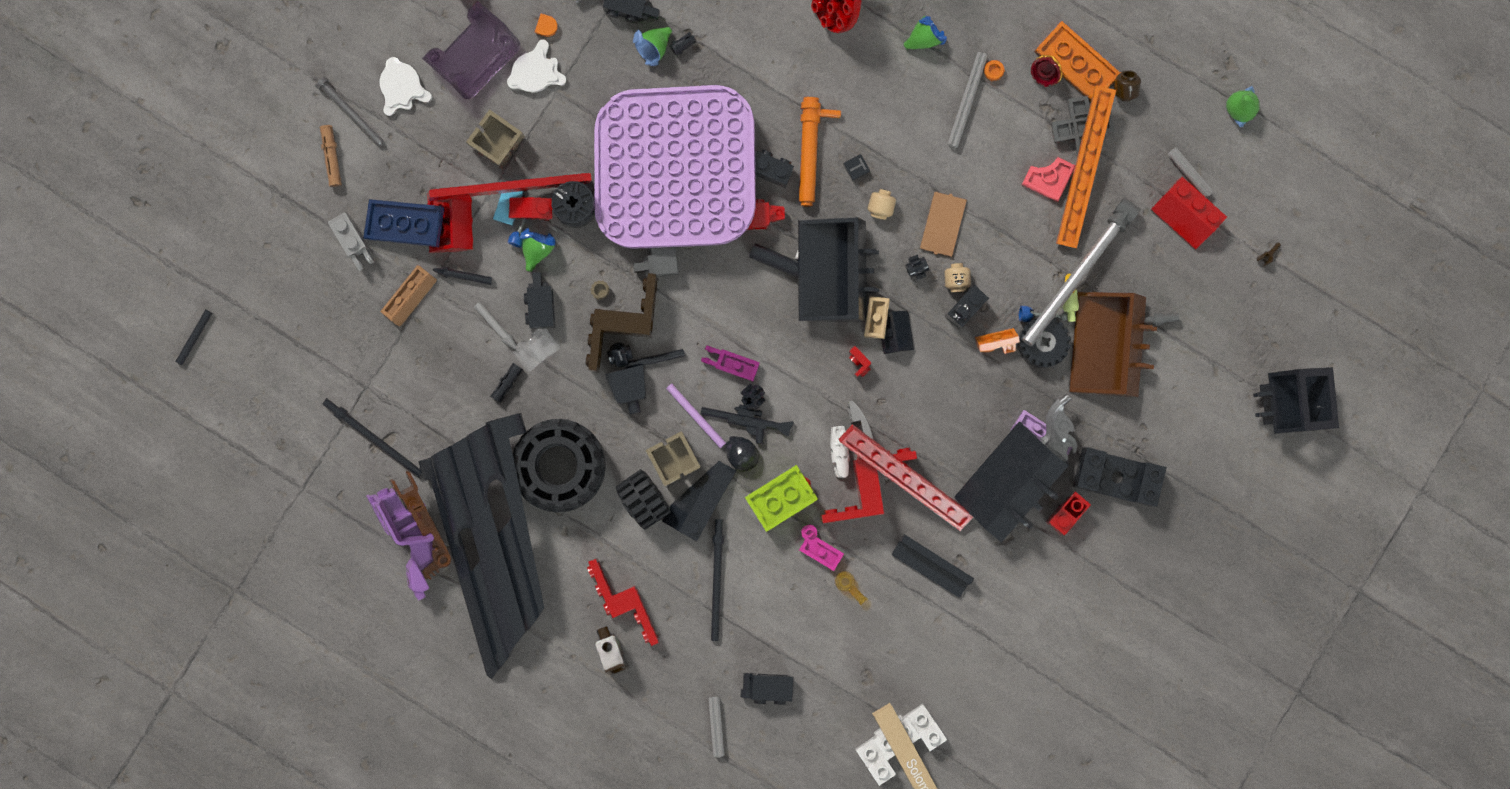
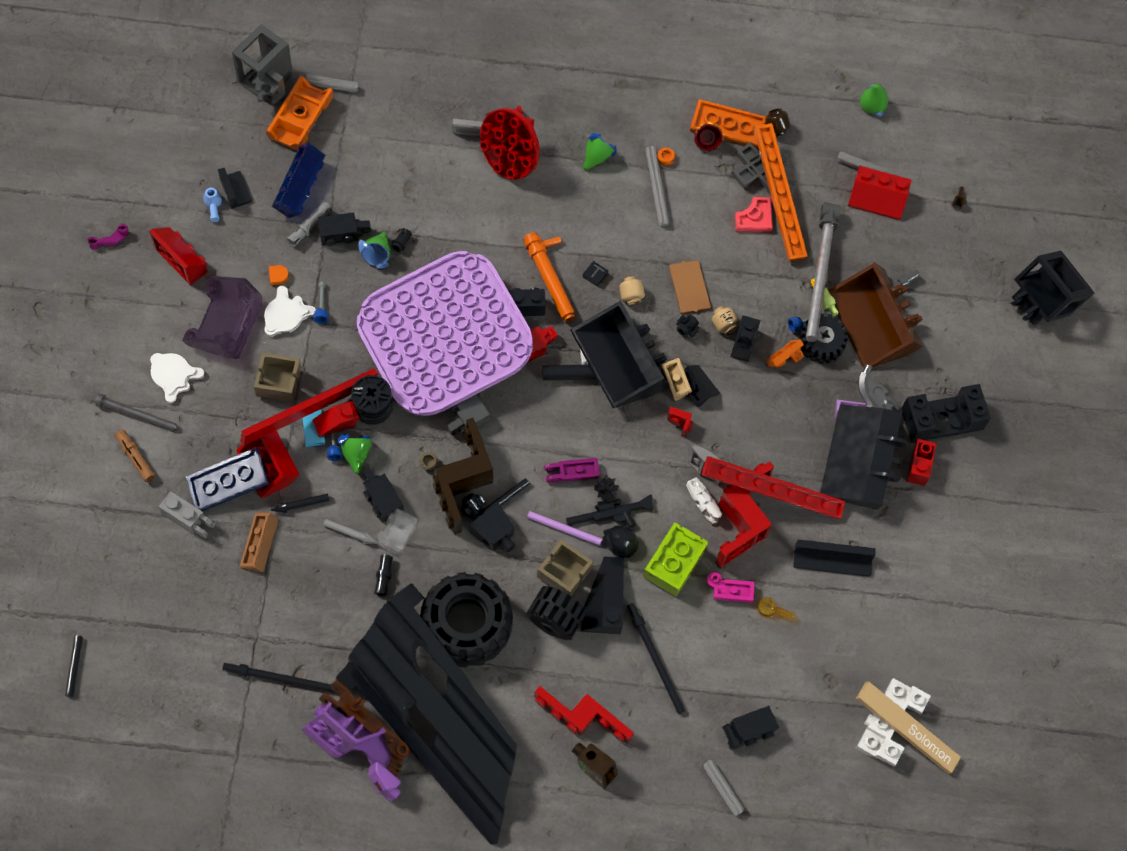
camera: 30 degrees left, 20 degrees down
(568, 88) = (321, 315): none -> blue hinge

